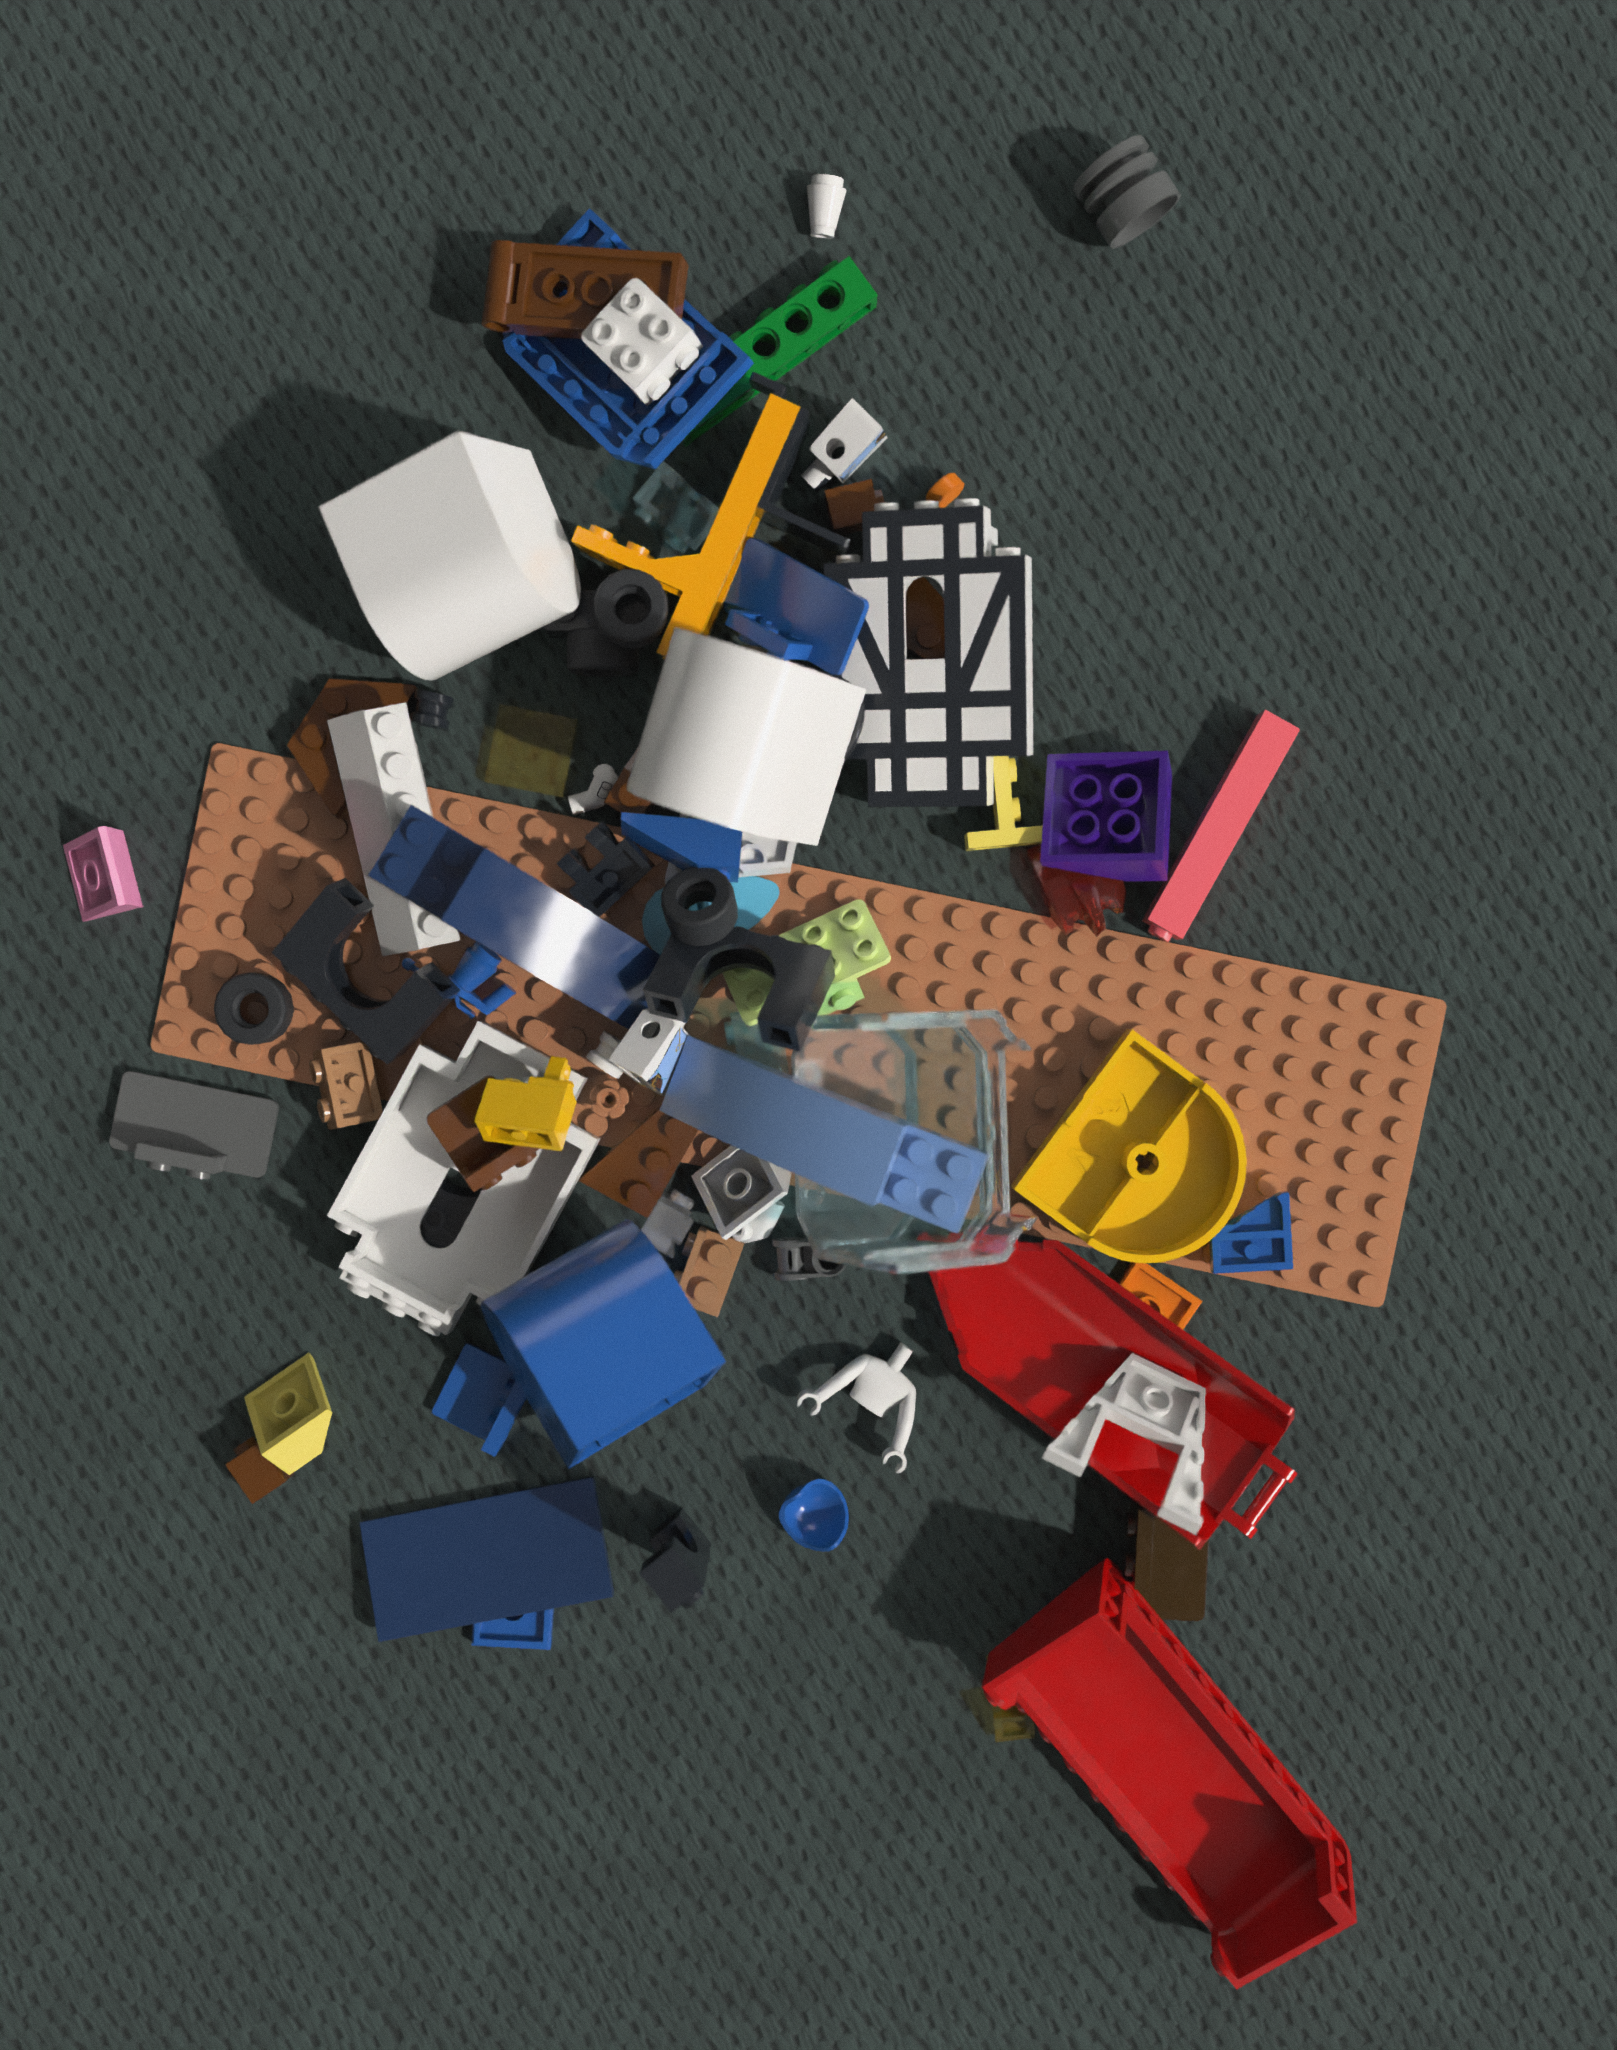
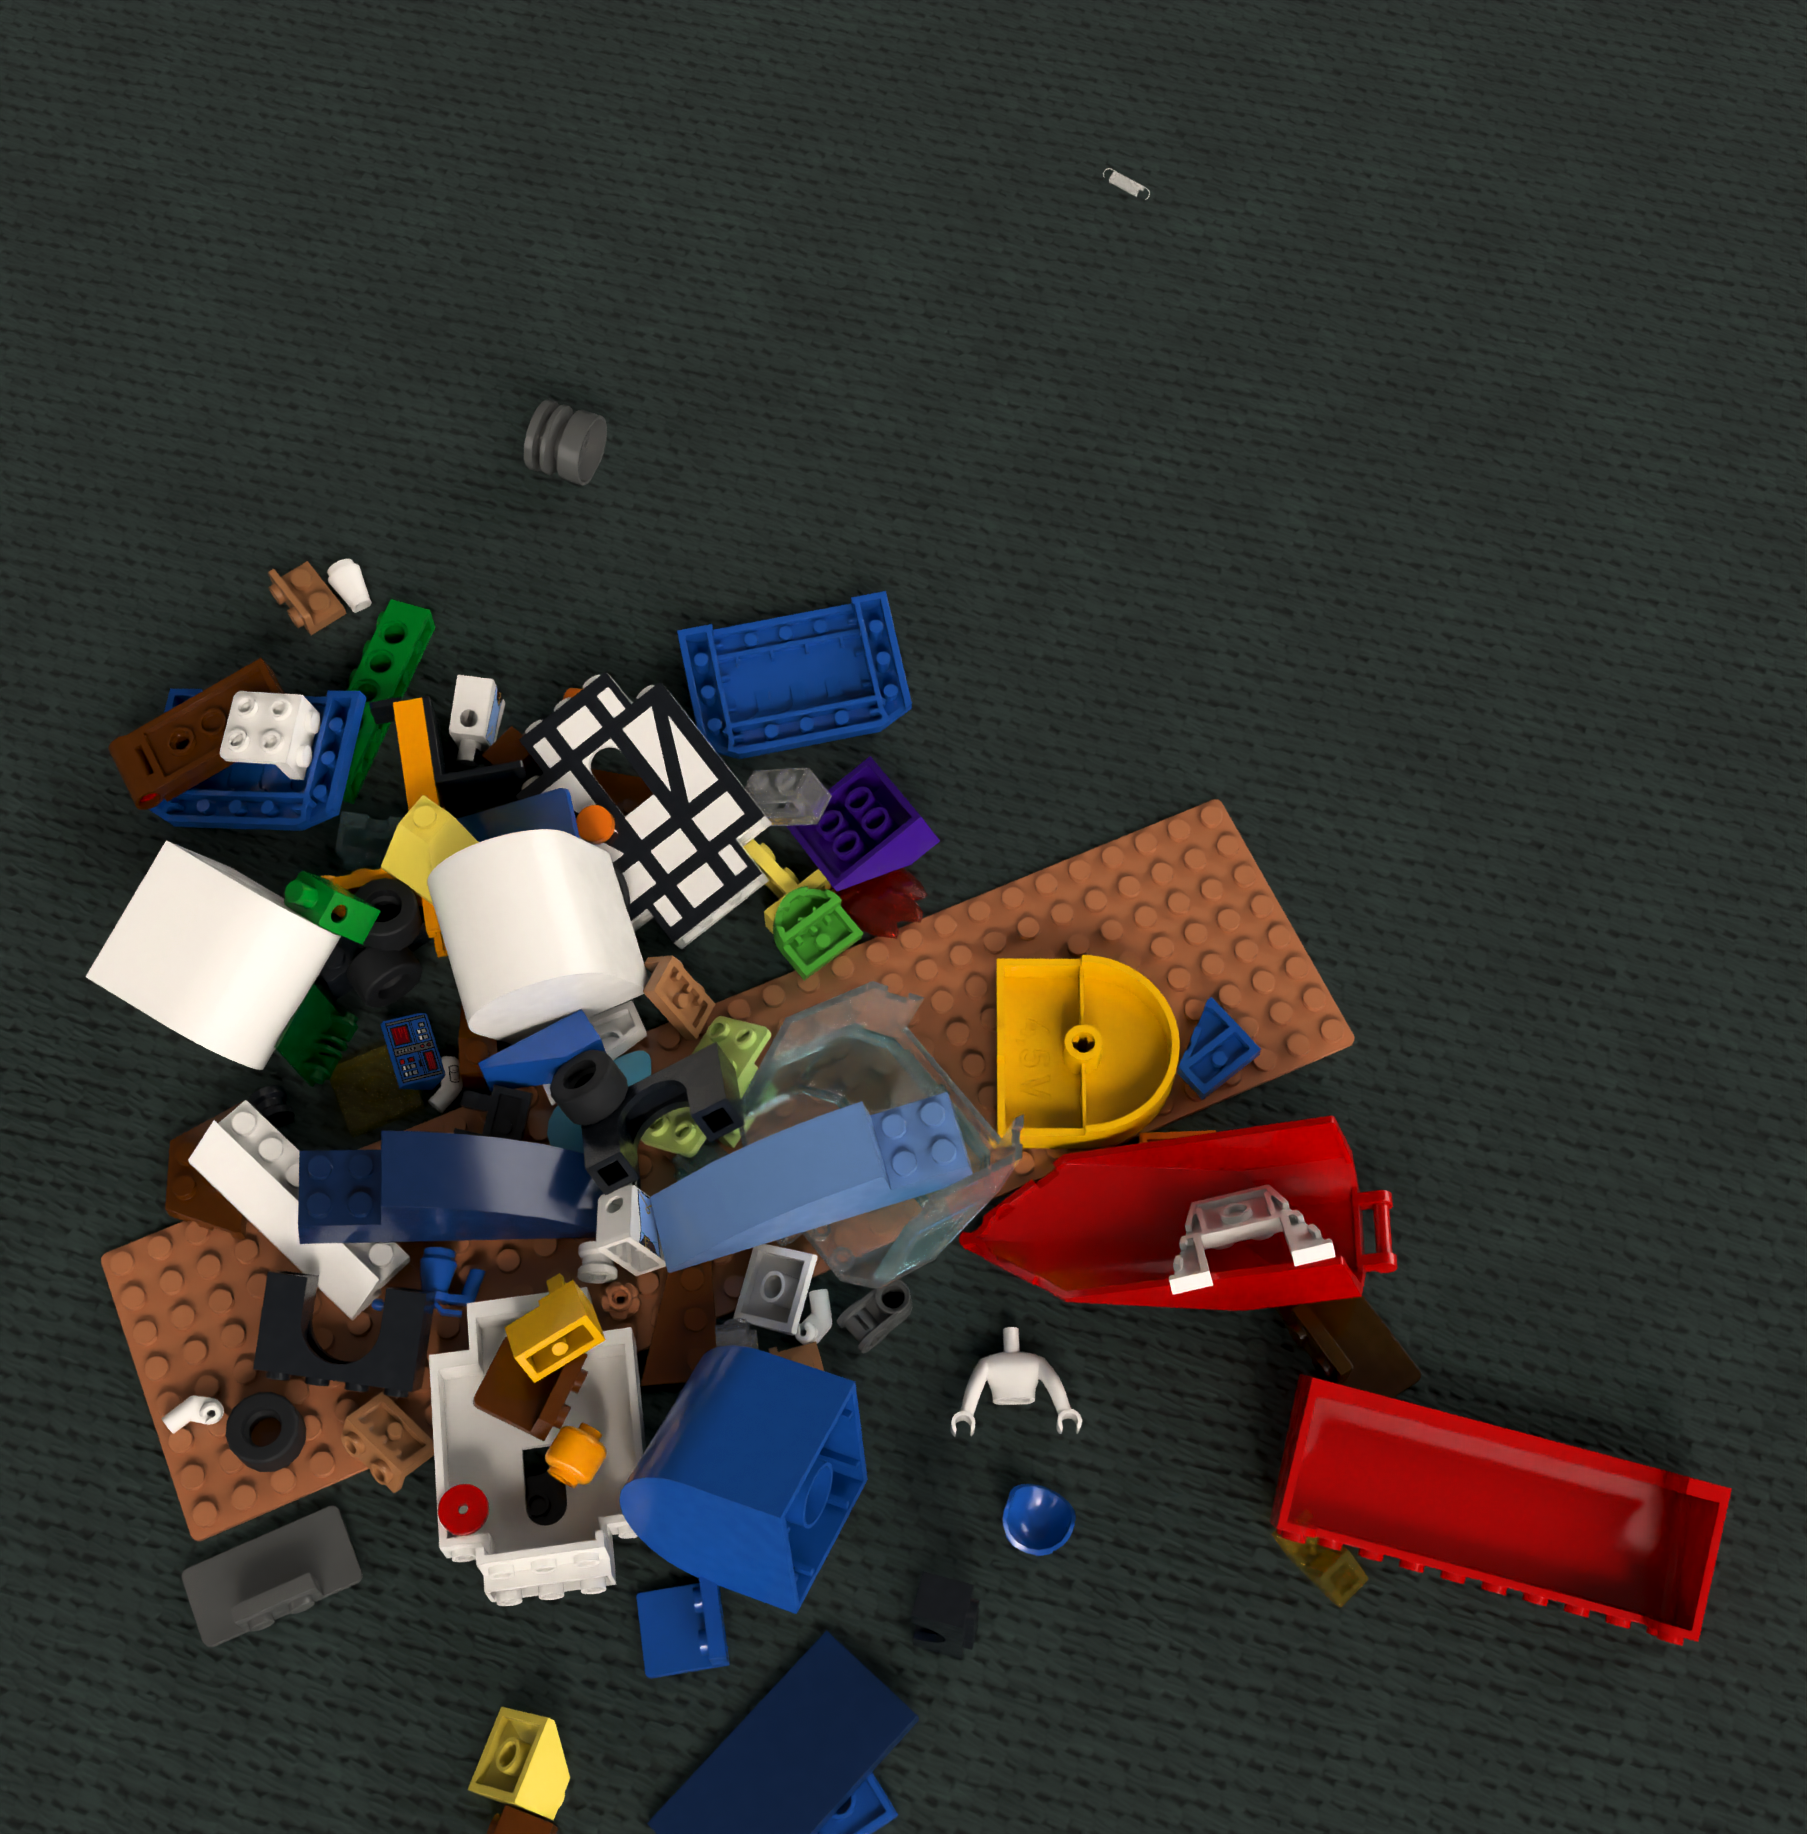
camera: 30 degrees left, 25 degrees down
(102, 873) = (60, 1421): bright pink slope -> none
(211, 944) = (194, 1409): none -> white arm
(352, 1205) = (461, 1496): none -> red wheel
(482, 1217) = (576, 1455): none -> light orange head
(502, 672) = (315, 1036): none -> dark green hinge
(580, 579) = (317, 897): none -> green torso
(582, 743) = (413, 1052): none -> slope
(706, 583) = (422, 842): none -> light yellow slope
(779, 188) = (307, 597): none -> medium nougat bracket
(837, 863) = (678, 995): none -> medium nougat bracket
(873, 649) = (595, 824): none -> orange tile
(997, 880) = (813, 929): none -> bright green slope
(1066, 735) = (796, 787): none -> clear window
(1163, 608) = (796, 678): none -> blue slope
(1220, 826) = (953, 791): coral brick -> none

